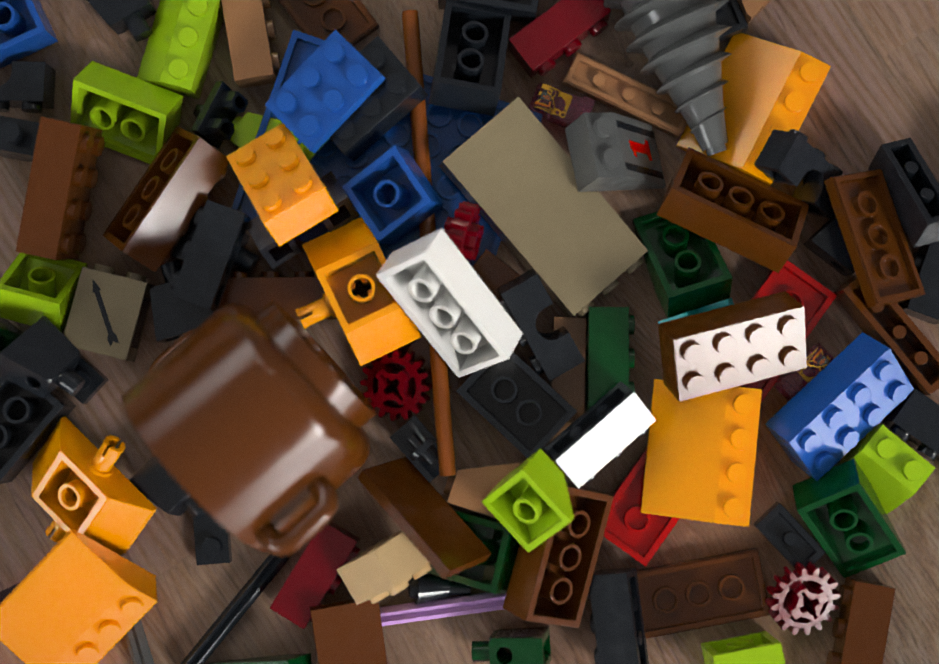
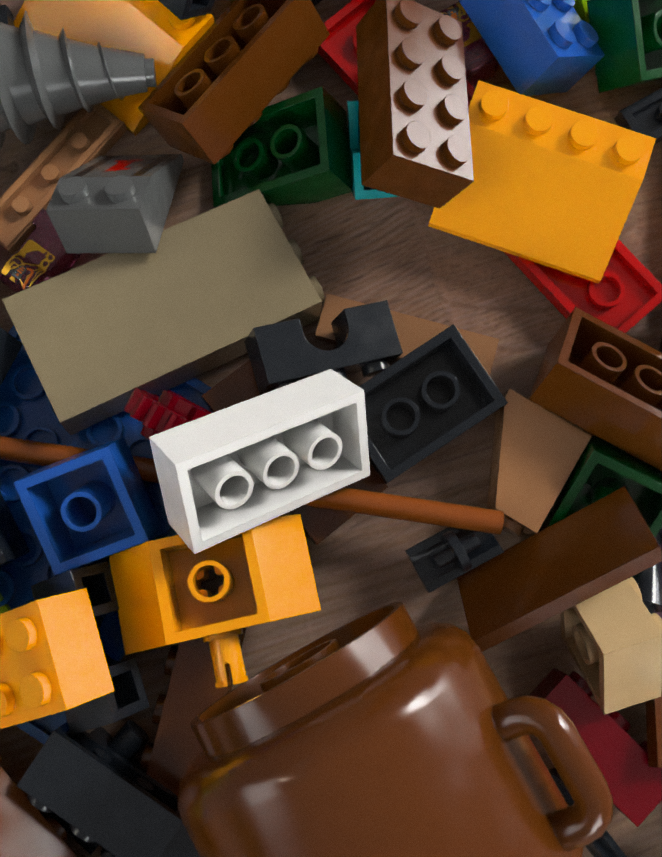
camera: 80 degrees left, 5 degrees down
(406, 393) = (372, 556): dark red gear -> none
(532, 501) = (569, 408): lime slope -> none
(600, 434) = (492, 299): brick -> none
(608, 351) = (410, 281): dark green brick -> none

